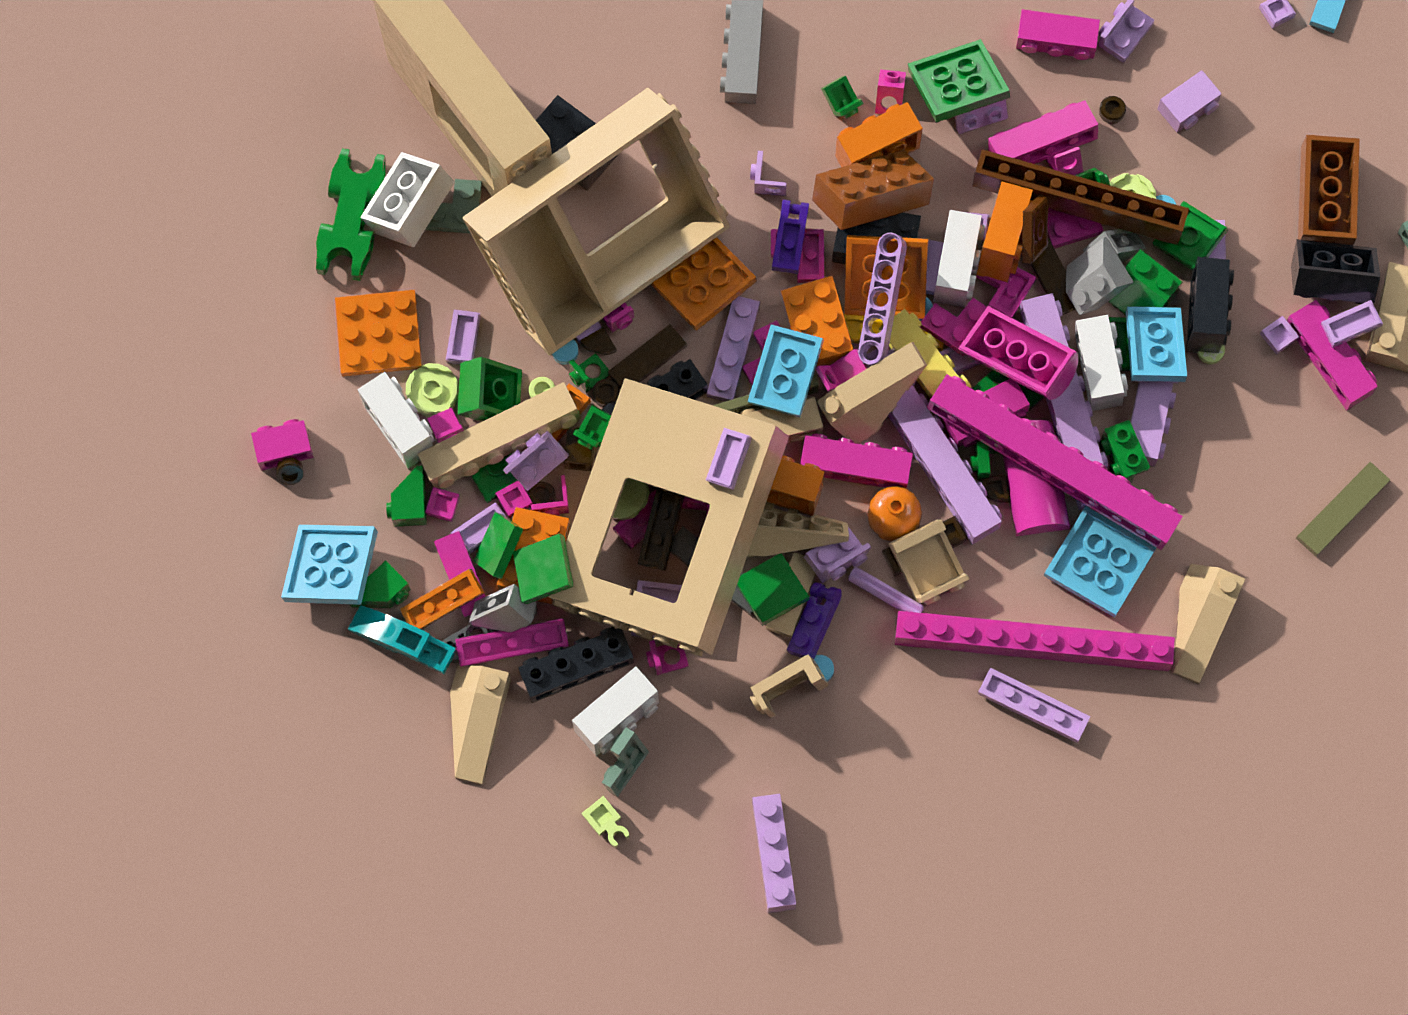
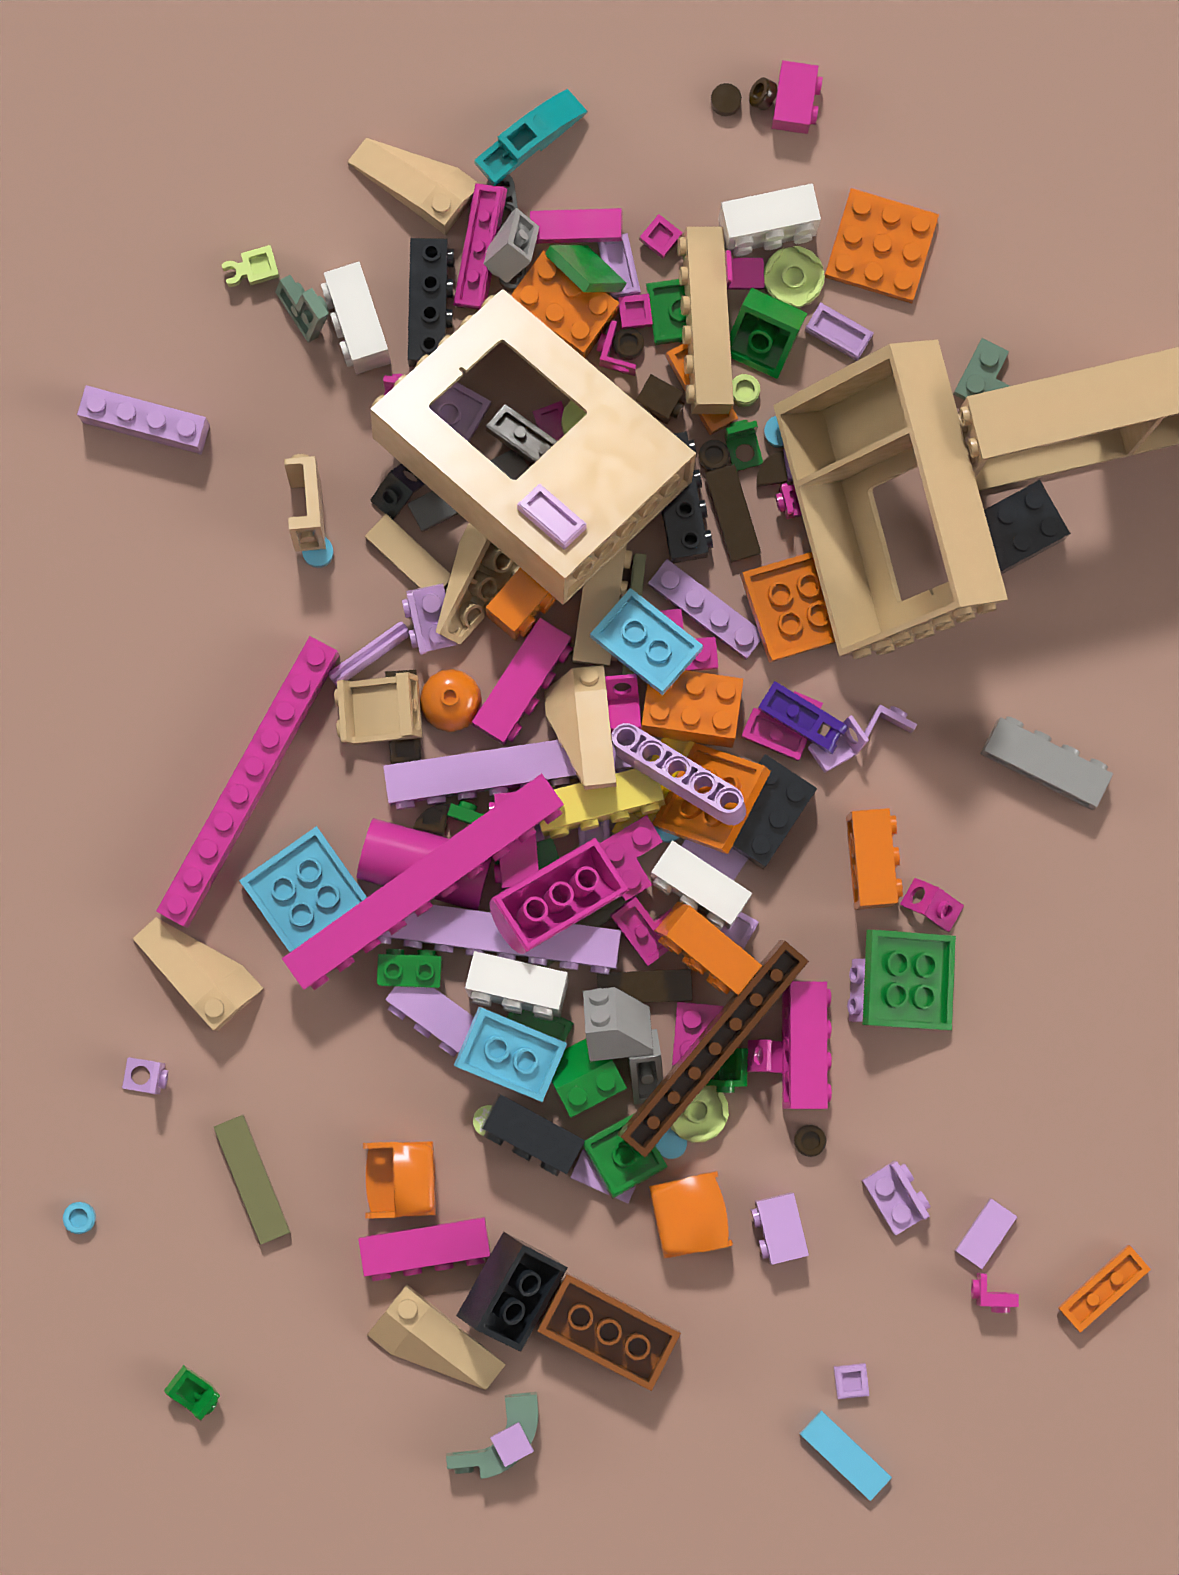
camera: 105 degrees right, 10 degrees up
(304, 501) = (726, 99): none -> dark brown tile
(329, 564) = (640, 92): medium azure plate -> none
(348, 233) = (1043, 277): green piece -> none
(384, 588) = (595, 138): green slope -> none
(407, 199) = (1014, 326): white brick -> none
(409, 501) = (678, 202): green slope -> none
(442, 600) = (553, 192): orange plate -> none
(535, 461) = (662, 344): lavender bracket -> none
(543, 569) = (532, 295): tile -> none
(593, 428) = (669, 412): green bracket -> none
(744, 625) = (395, 491): none -> black bracket
(772, 589) = (420, 533): green tile -> none
(797, 197) = (845, 750): none -> lavender bracket
(814, 620) = (369, 565): dark purple plate -> none
(842, 97) = (944, 846): green bracket -> none
(872, 189) = (814, 823): dark orange brick -> none
(1033, 705) = (182, 753): lavender plate -> none
(1035, 229) = (692, 978): reddish brown tile -> none
(1057, 34) = (920, 1117): dark pink brick -> none
(1211, 168) = (690, 1215): none -> orange piece
(1279, 335) = (471, 1201): lavender plate -> none
(1290, 394) = (400, 1179): none -> orange piece
(1302, 614) = (156, 1082): none -> lavender bracket
(1351, 324) = (443, 1279): lavender tile -> none

